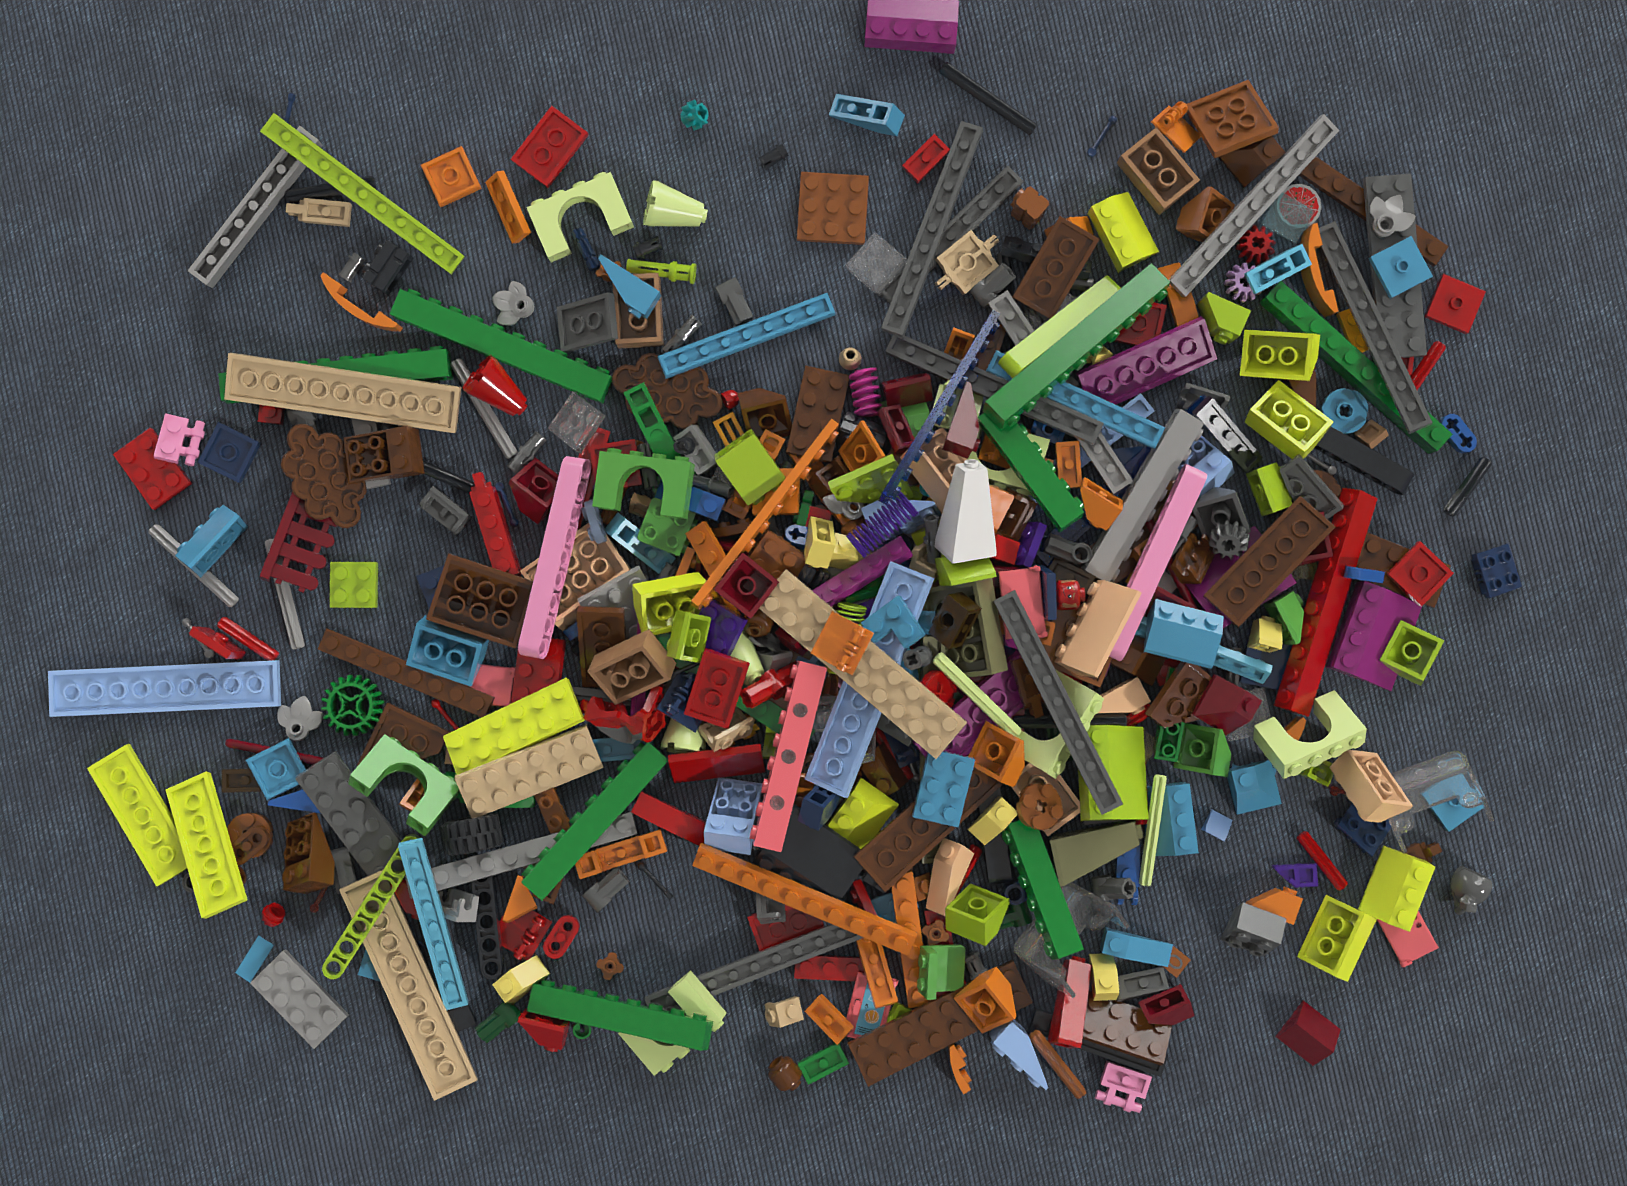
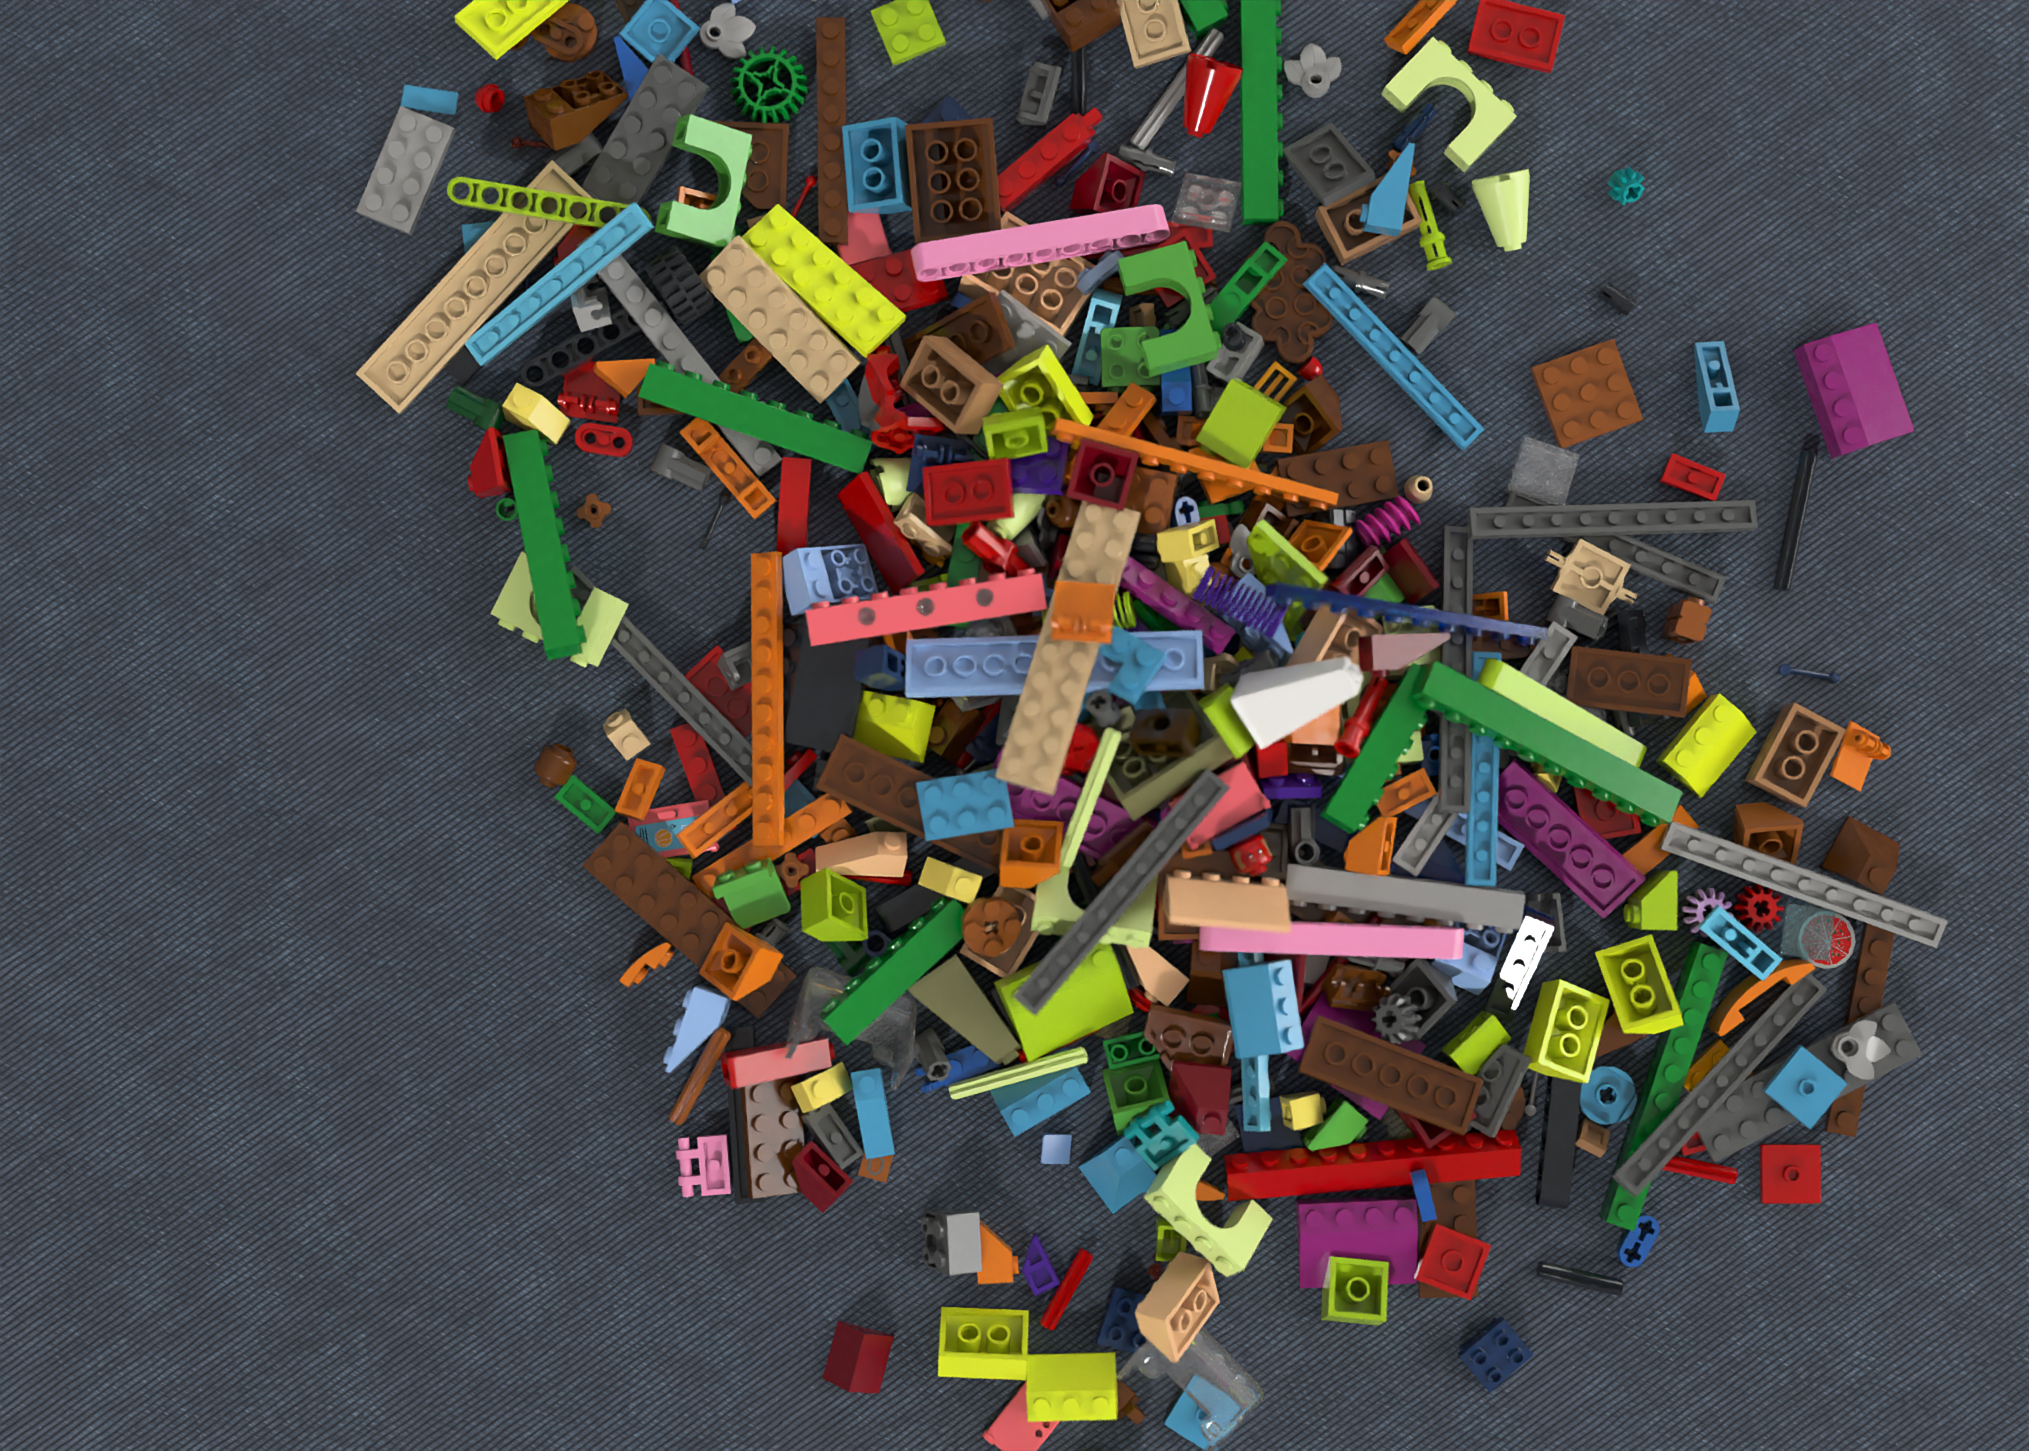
camera: 60 degrees right, 0 degrees up
(1007, 478) = (1357, 726): none -> red pin
(1231, 119) = (1895, 815): dark orange plate -> none
(1249, 745) = (1166, 1142): none -> teal plate

